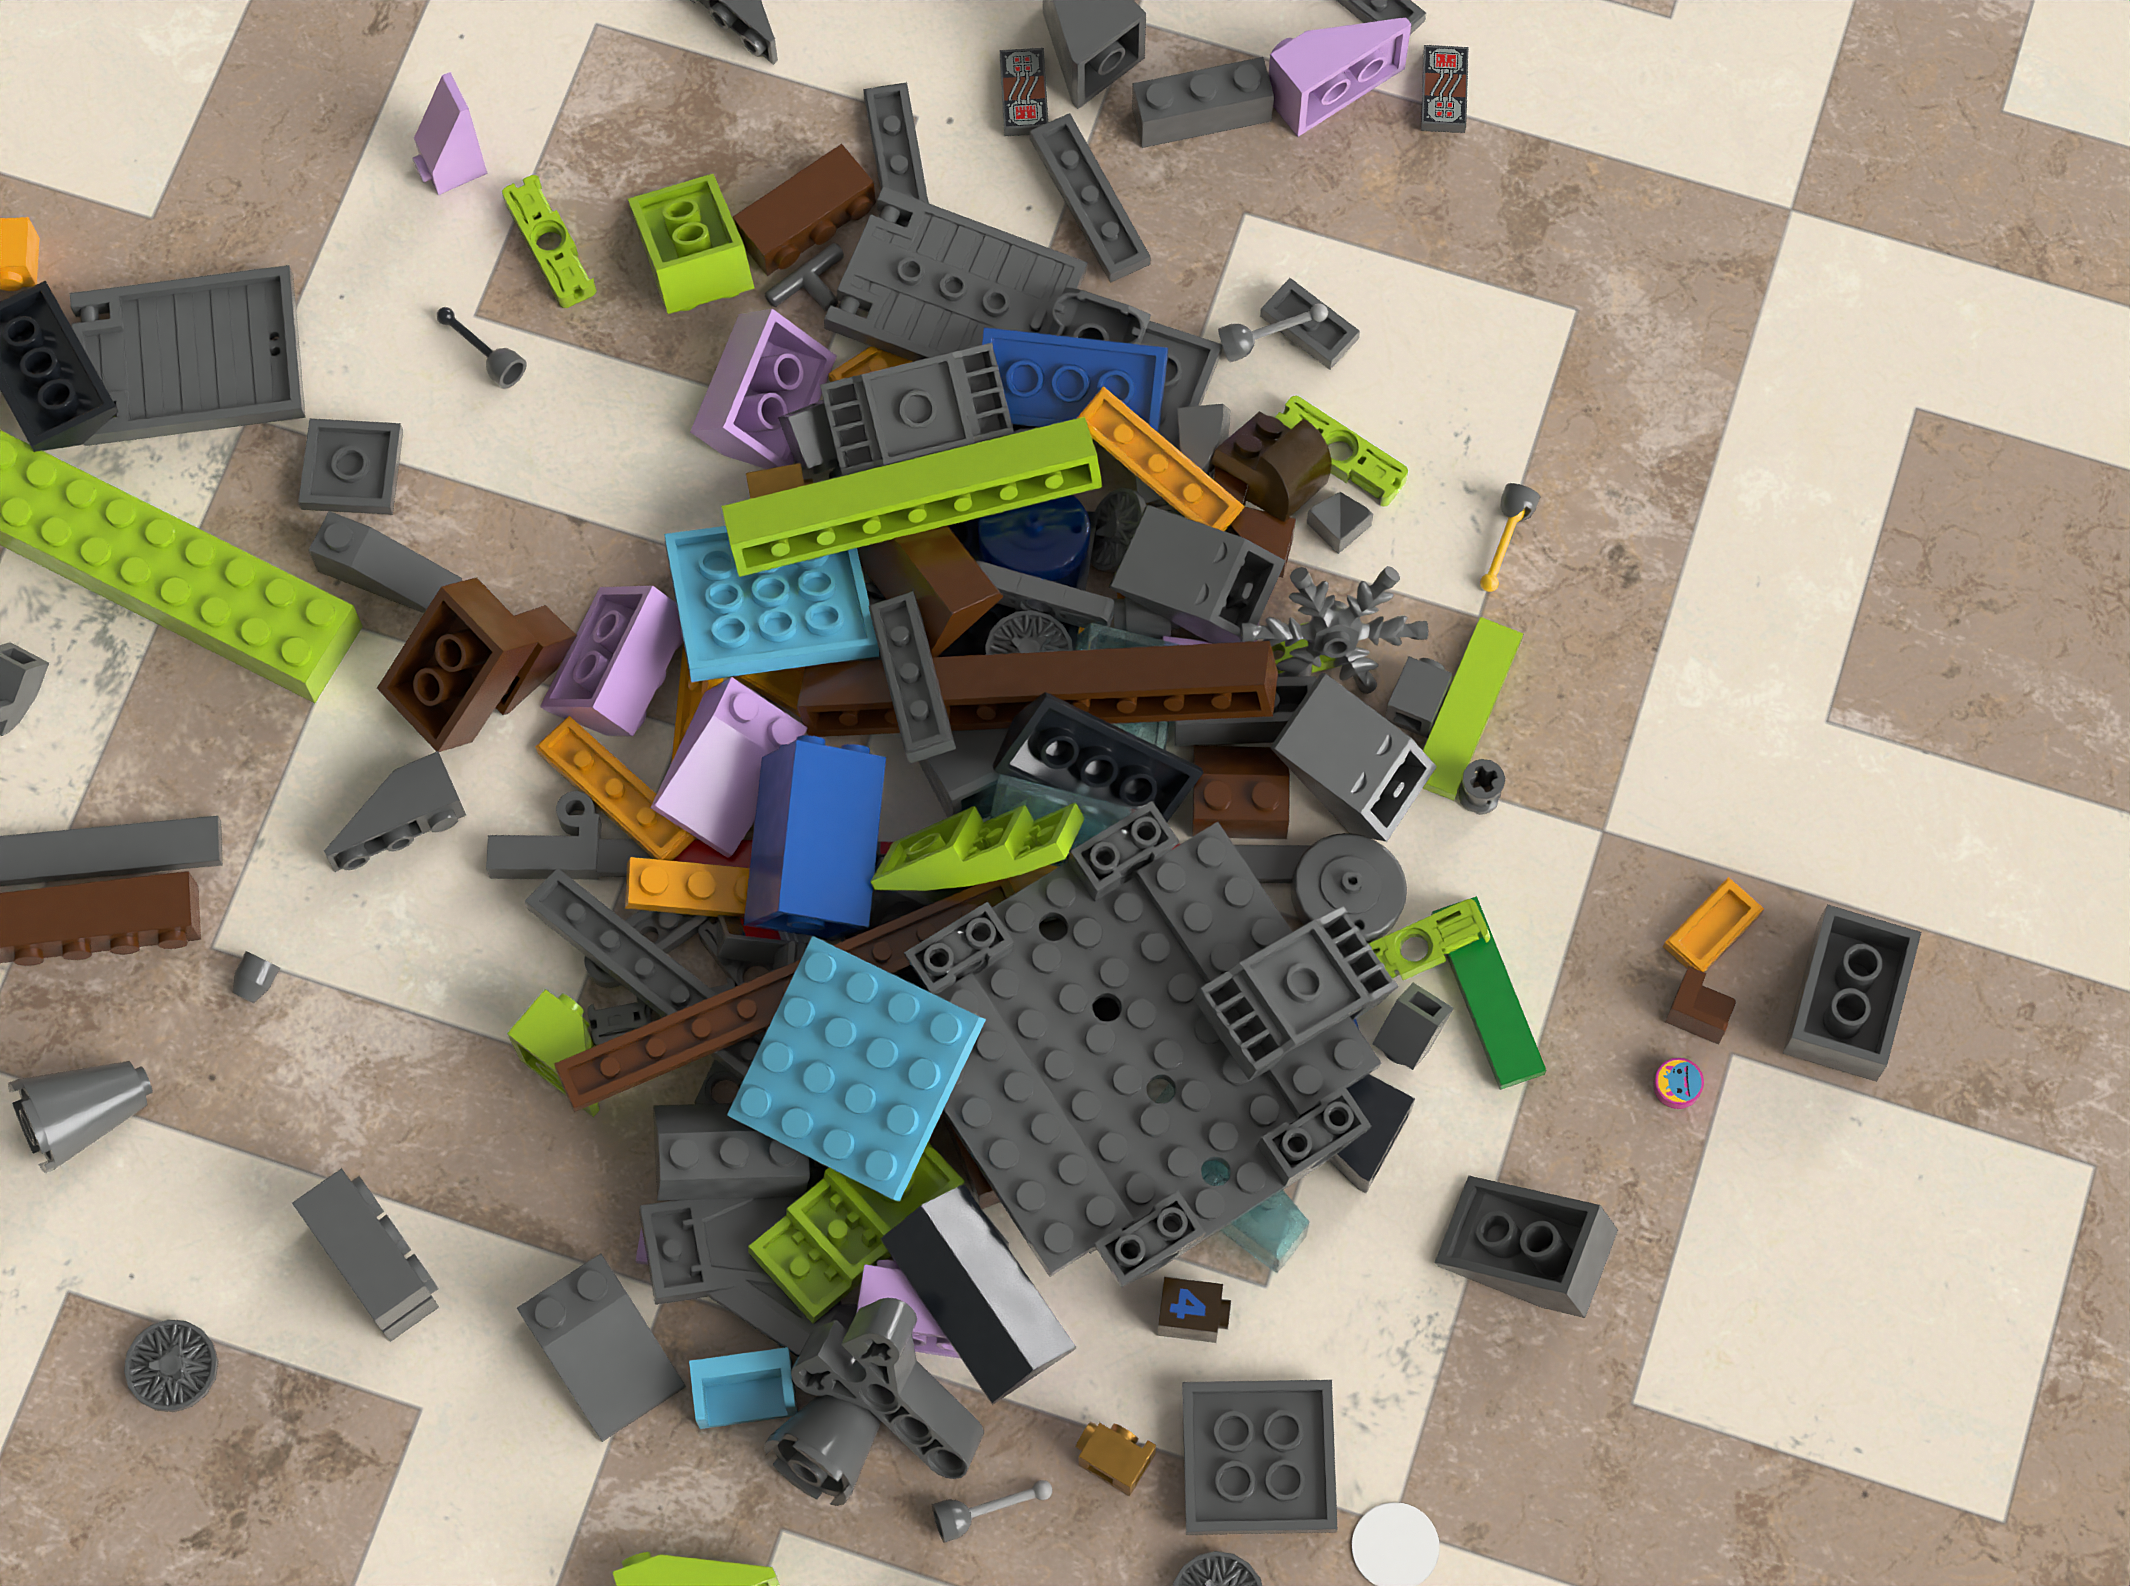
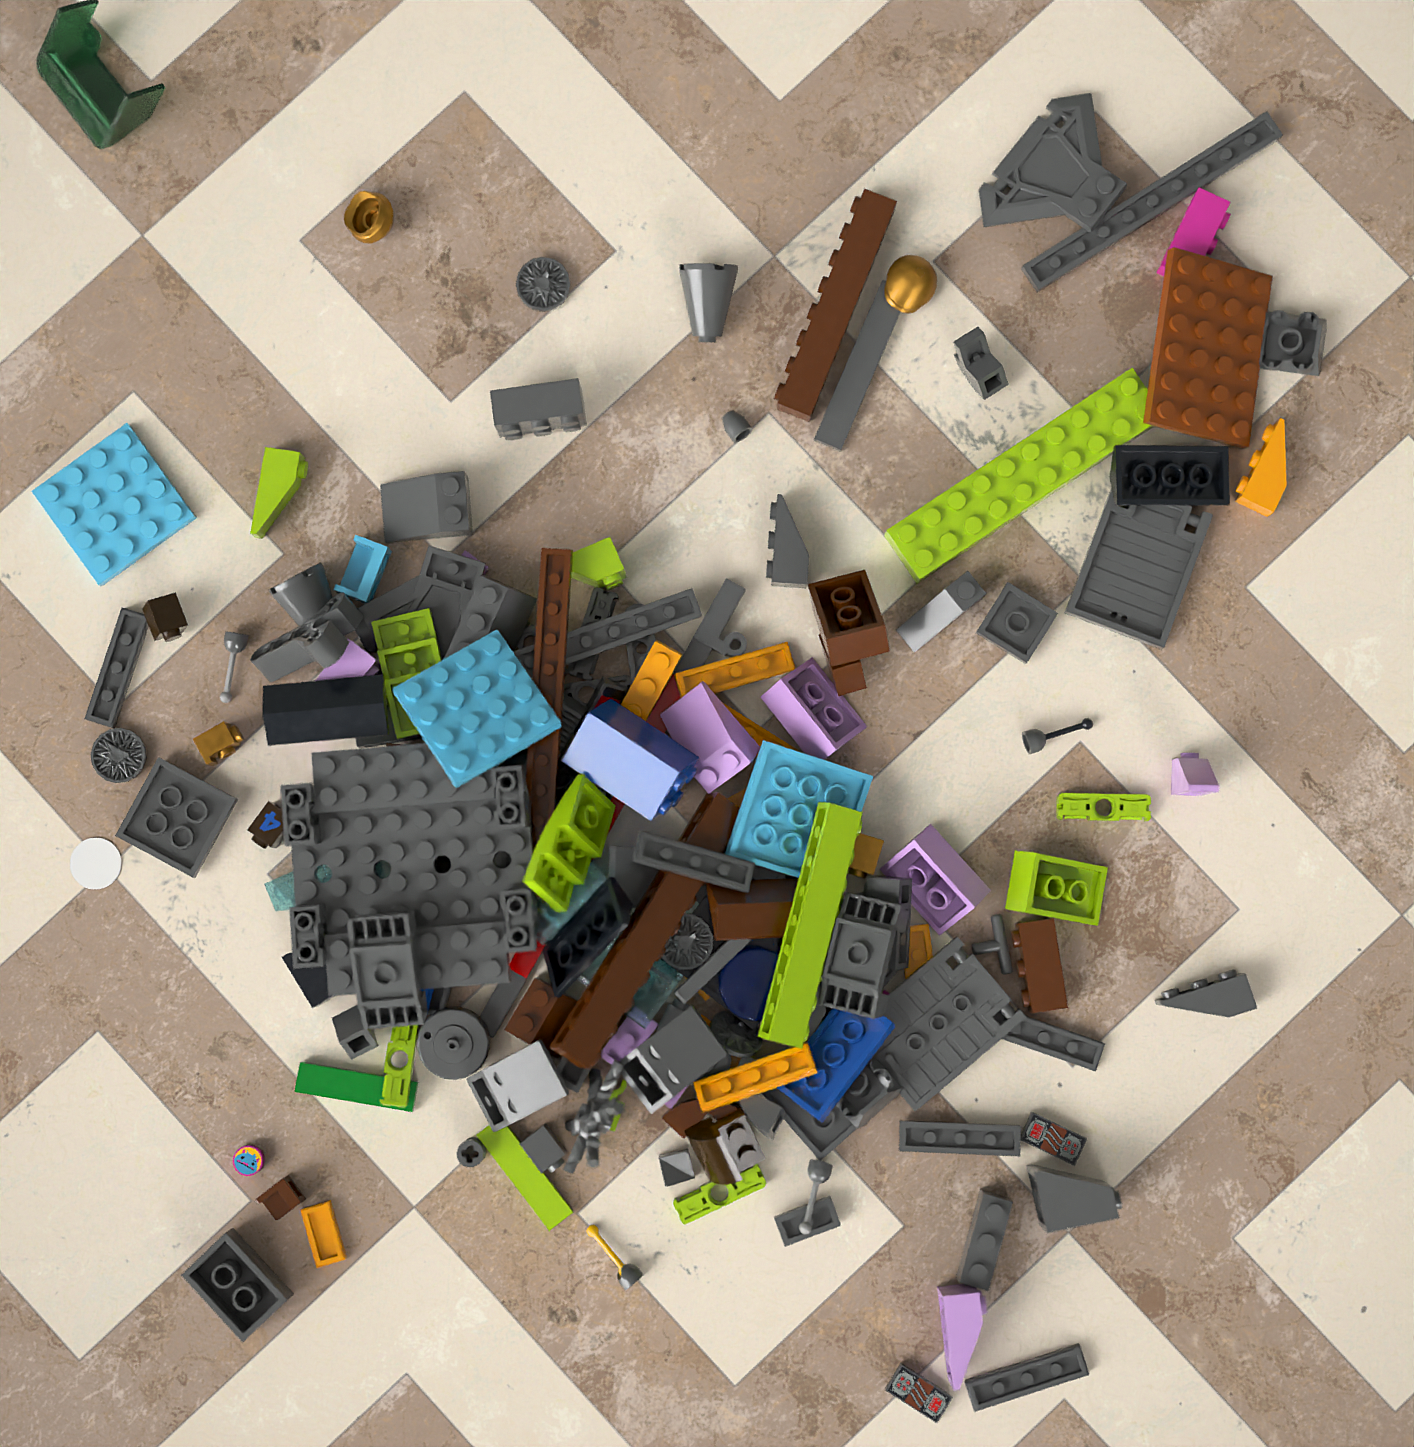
camera: 125 degrees right, 15 degrees up
(1529, 1244) = (206, 1023): dark grey slope -> none

